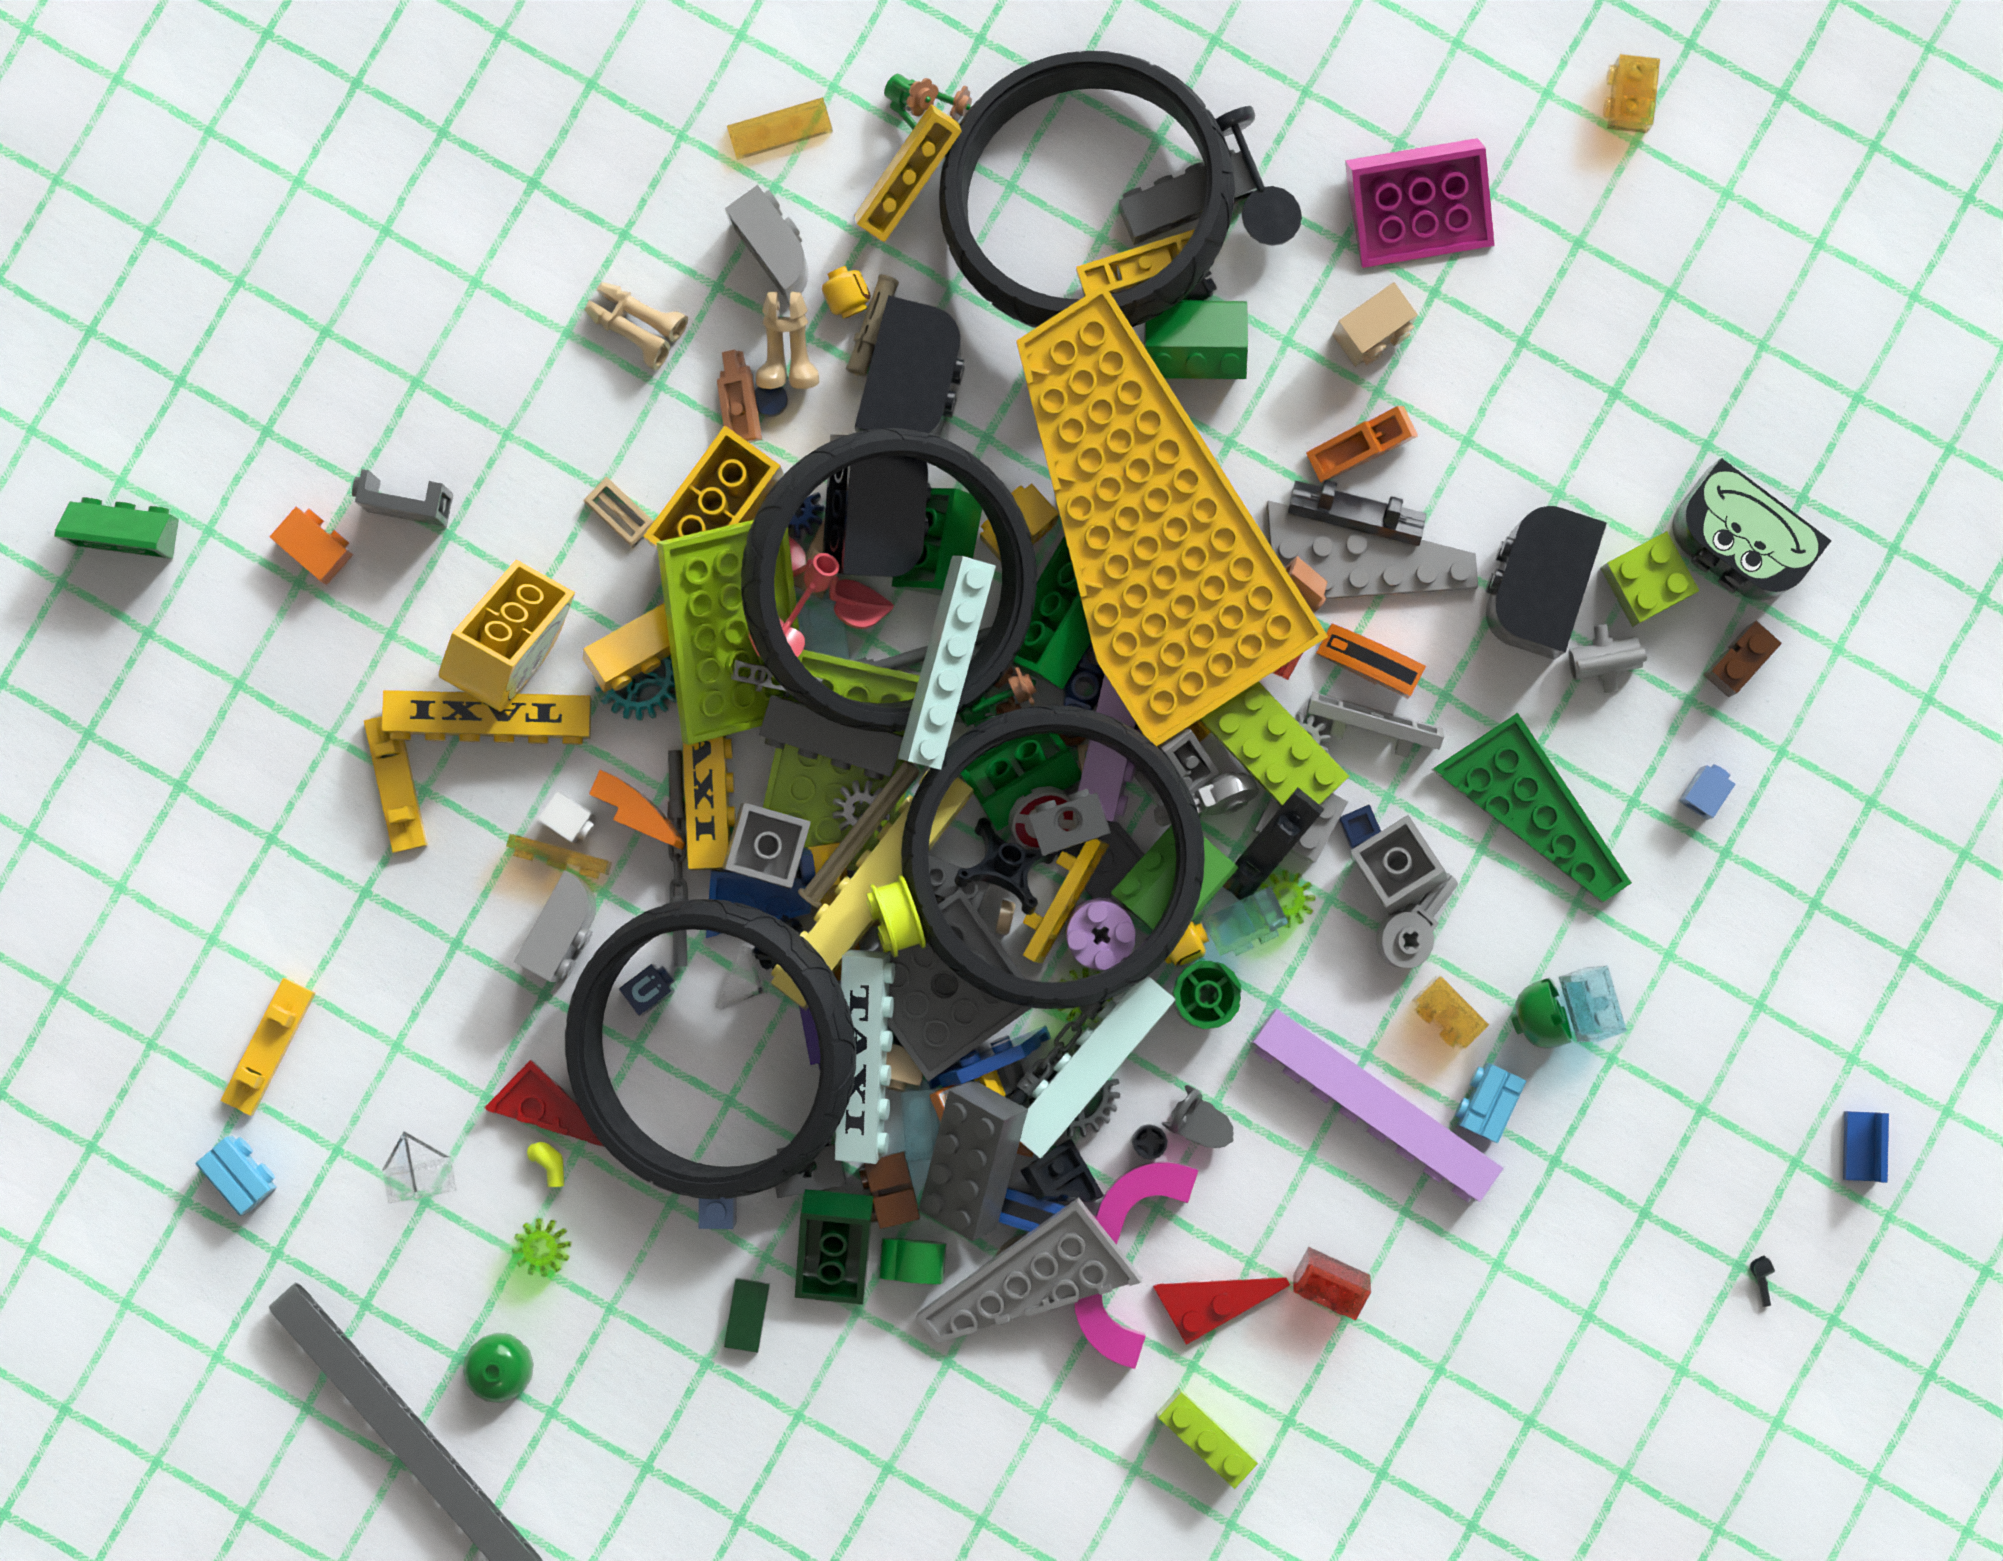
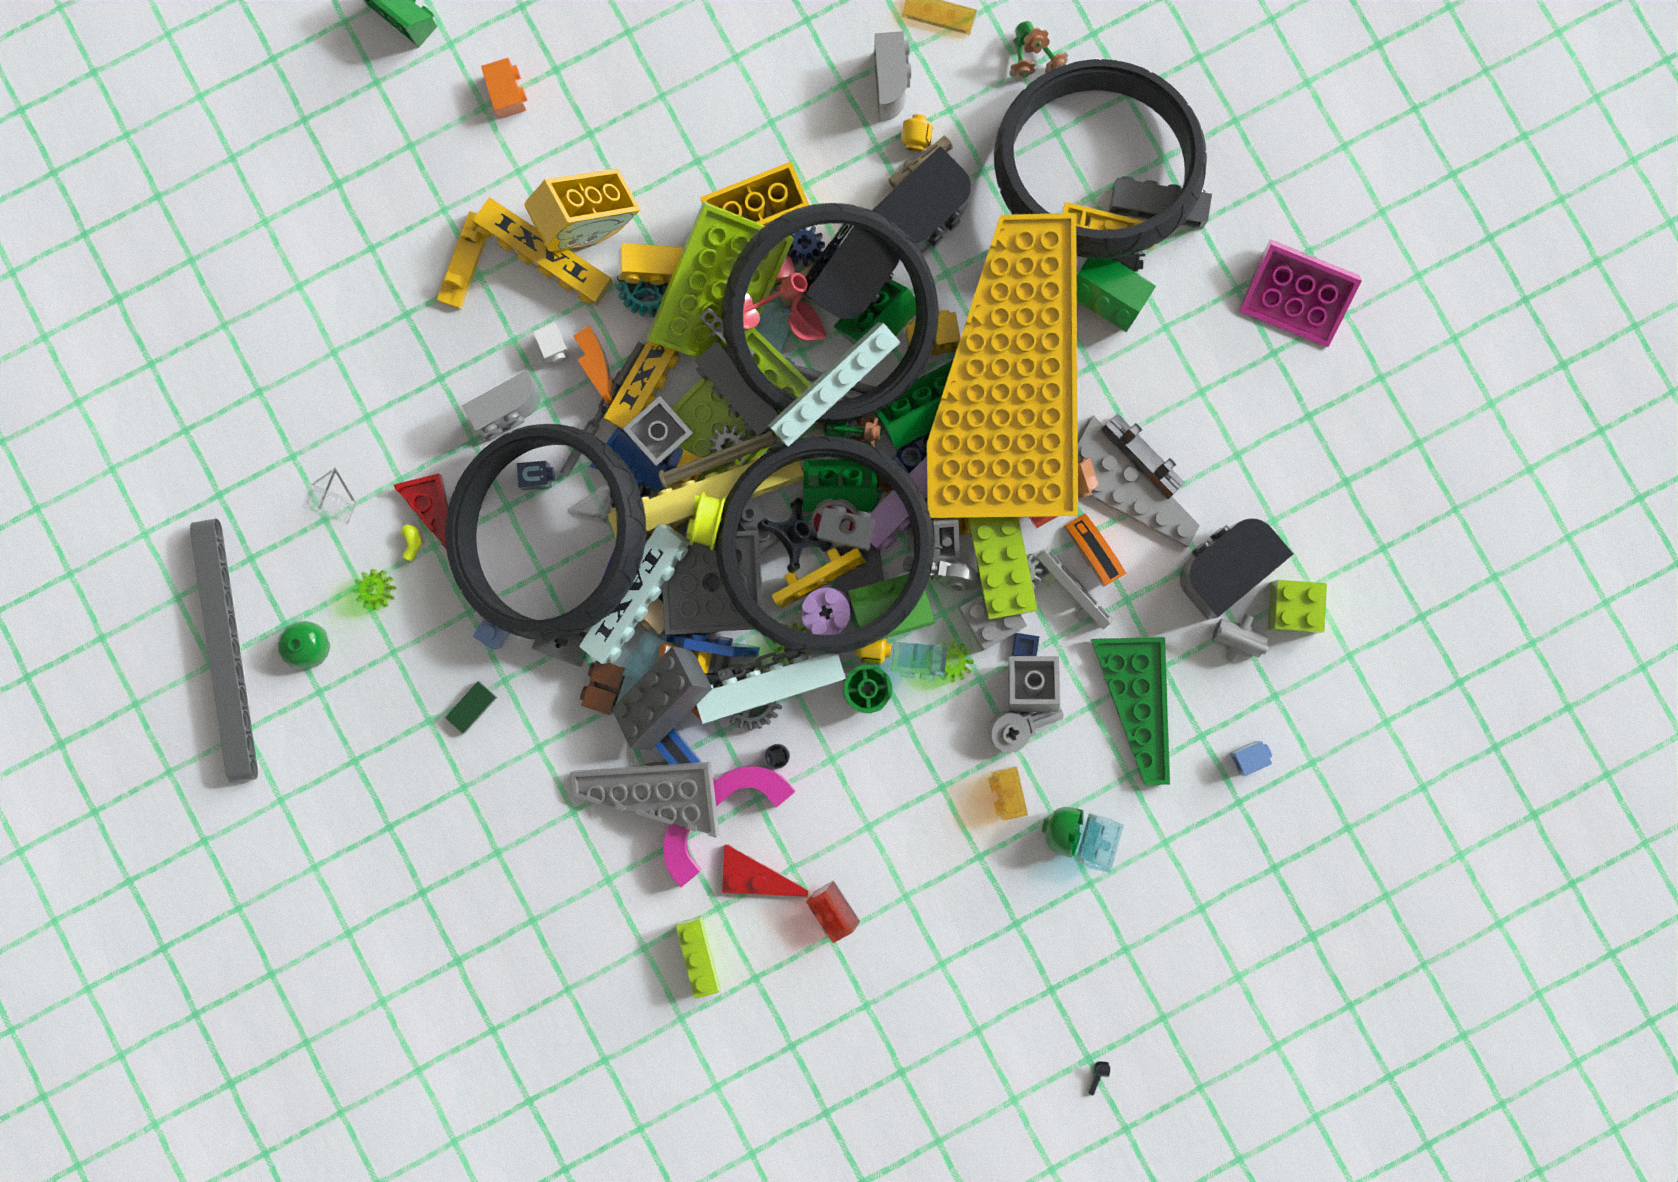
camera: 35 degrees right, 0 degrees up
(237, 1174) = (223, 432): medium azure brick -> none
(268, 1046) = (290, 369): yellow hinge -> none
(432, 511) = (588, 108): dark grey panel -> none
(558, 856) = (532, 363): clear yellow plate -> none
(597, 492) = (694, 161): tan tile -> none
(654, 348) = (781, 97): tan piece -> none
(738, 397) = (813, 156): nougat hinge -> none
(771, 401) = (831, 170): dark blue tile -> none
(774, 371) = (843, 154): tan piece -> none
(833, 1246) = (546, 698): dark green brick -> none
(907, 173) = (998, 82): yellow brick -> none
(912, 1260) = (589, 737): green piece -> none
(1005, 917) = (775, 566): tan tile -> none
(1062, 1176) = (710, 743): black wing -> none
(1200, 1121) = (815, 763): dark grey piece -> none
(1270, 212) = (1203, 240): black piece -> none
(1273, 844) = (965, 622): black hinge -> none
(1362, 443) = (1172, 416): orange slope -> none
(1374, 325) = (1225, 348): tan brick -> none
(1376, 1105) = (929, 822): lavender brick -> none
(1490, 1102) = (999, 863): medium azure brick -> none
(1632, 93) = (1472, 306): clear yellow brick -> none
(1735, 668) = (1316, 693): reddish brown piece -> none
(1745, 534) = (1374, 616): brick -> none
(1866, 1146) = (1213, 1036): blue panel -> none

